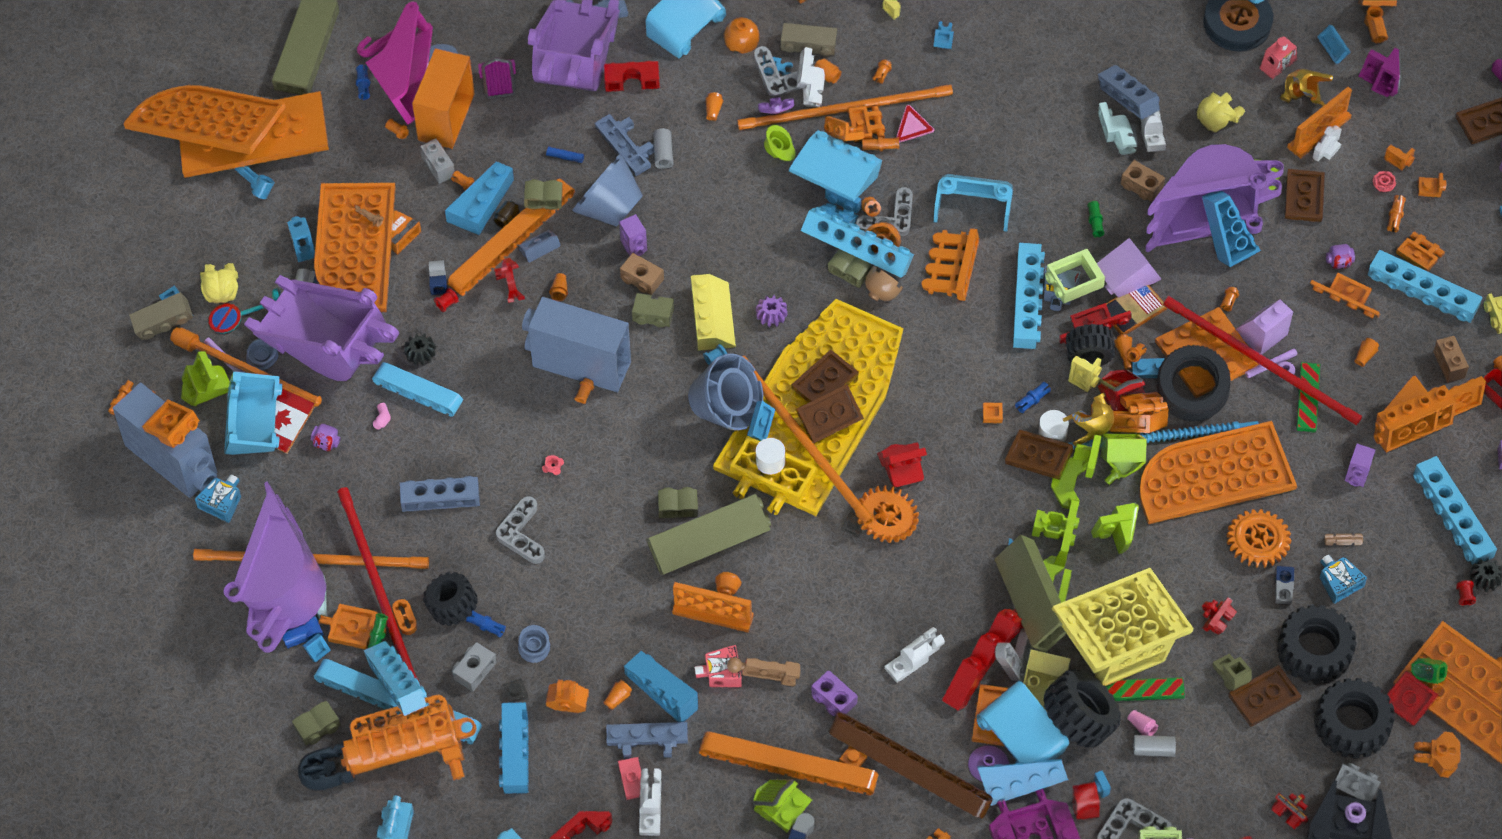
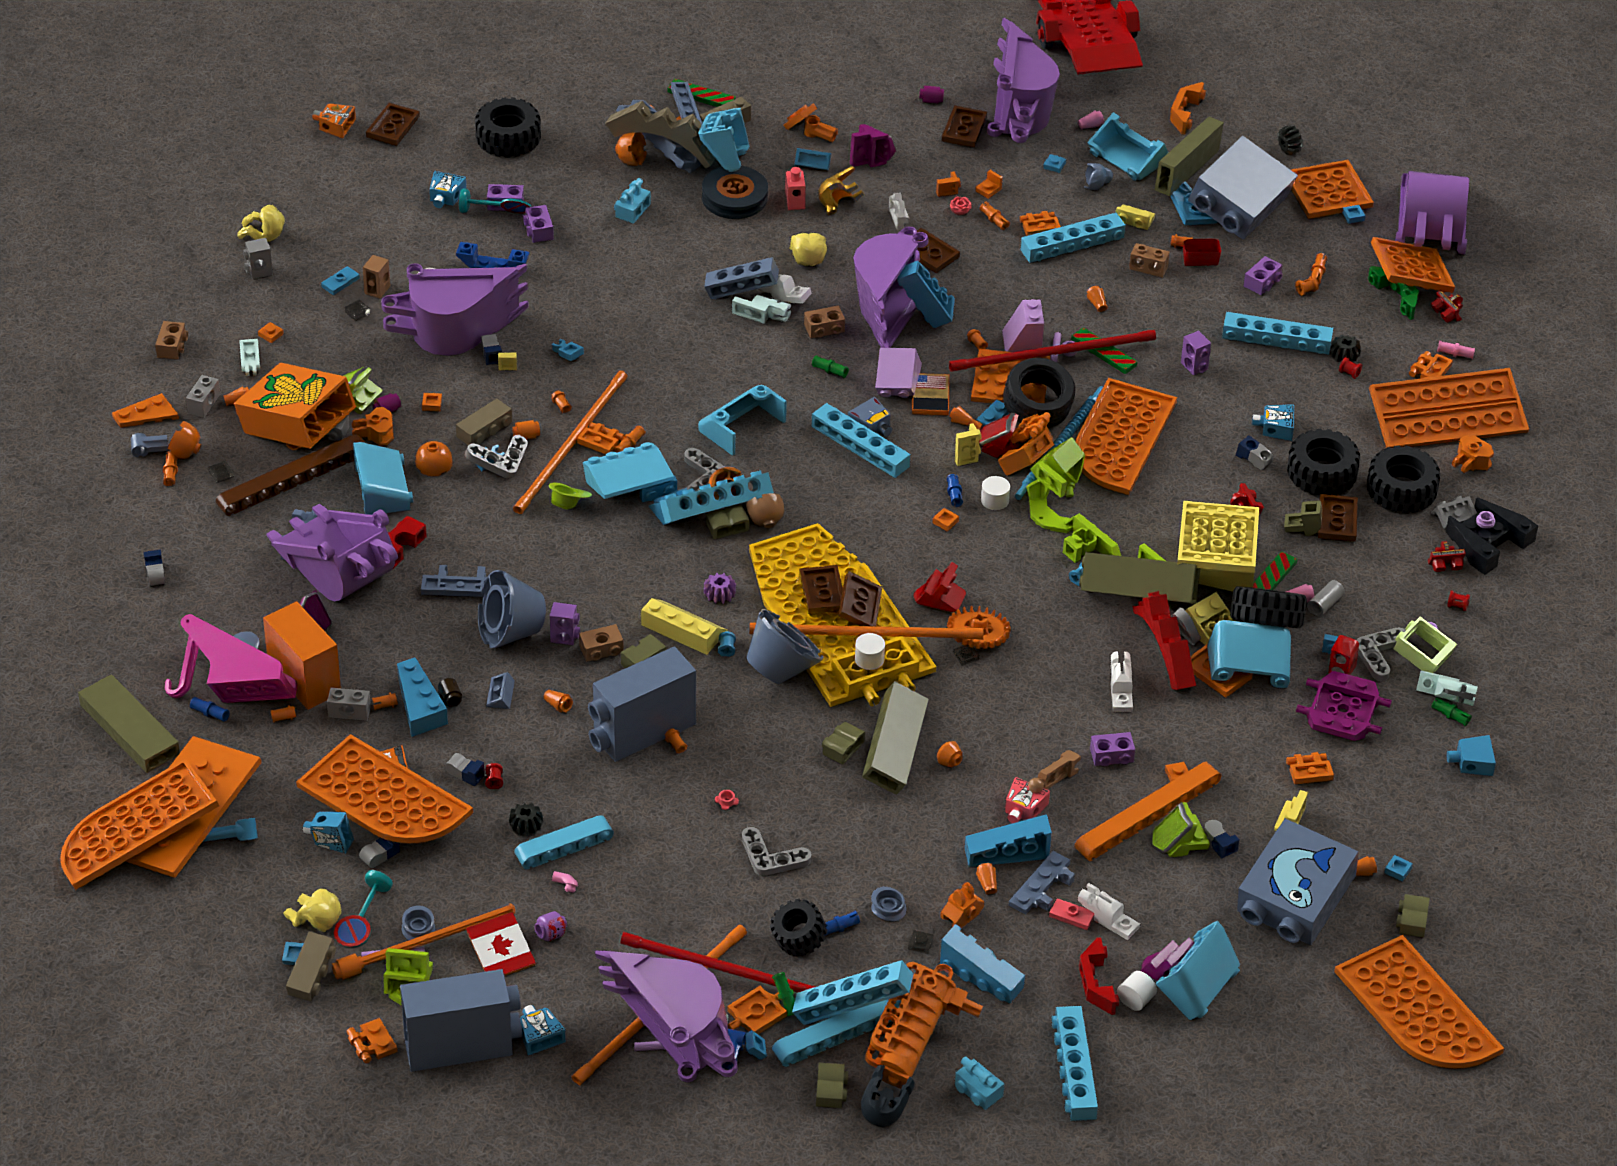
camera: 55 degrees left, 15 degrees down
(171, 423) = (472, 980): orange plate -> none
(251, 413) = (464, 951): medium azure windscreen -> none
(324, 327) = (454, 853): medium lavender piece -> none
(377, 220) = (368, 766): medium nougat piece -> none
(407, 616) = (780, 967): orange beam -> none
(448, 499) = (683, 883): sand blue brick -> none
(472, 677) = (873, 949): light grey brick -> none
(502, 245) = (475, 700): orange beam -> none
(507, 272) = (512, 722): red piece -> none
(543, 194) = (465, 651): olive brick -> none
(563, 154) = (429, 626): blue piece -> none
(663, 148) = (491, 562): light grey pin -> none
(713, 105) = (483, 512): orange cone -> none
(716, 613) = (966, 779): orange fence -> none
(761, 421) = (821, 642): dark azure plate -> none
(776, 106) = (525, 478): medium lavender dish -> none
(810, 79) = (526, 440): white plate -> none
(841, 129) = (597, 447): orange bracket -> none
(870, 211) = (685, 476): orange bush -> none
(910, 765) = (1217, 739): reddish brown beam -> none
(913, 125) = (634, 411): piece -> none
(954, 271) = (785, 452): orange fence -> none
(983, 753) = (1253, 700): medium lavender dish -> none
(1018, 779) = (1287, 688): dark azure wing -> none
(1039, 454) = (1011, 514): reddish brown plate -> none
(1090, 266) = (874, 384): yellowish green window -> none
(1091, 343) = (946, 424): black tyre -> none
(1094, 424) = (1023, 460): pearl gold piece -> none
(1097, 315) = (921, 418): red bracket -> none
(1119, 524) = (1123, 505): lime piece -> none
(1135, 353) = (975, 412): orange pin -> none
(1258, 547) = (1204, 445): orange gear -> none
(1313, 128) = (878, 204): orange fence -> none
(1340, 256) = (1002, 263): medium lavender head -> none
(1343, 539) = (1243, 403): medium nougat axle -> none
(1349, 291) = (1035, 276): orange bracket -> none
(1411, 698) = (1411, 437): red tile -> none
(1416, 411) = (1180, 295): orange wedge -> none
(1429, 670) = (1402, 416): green rock -> none

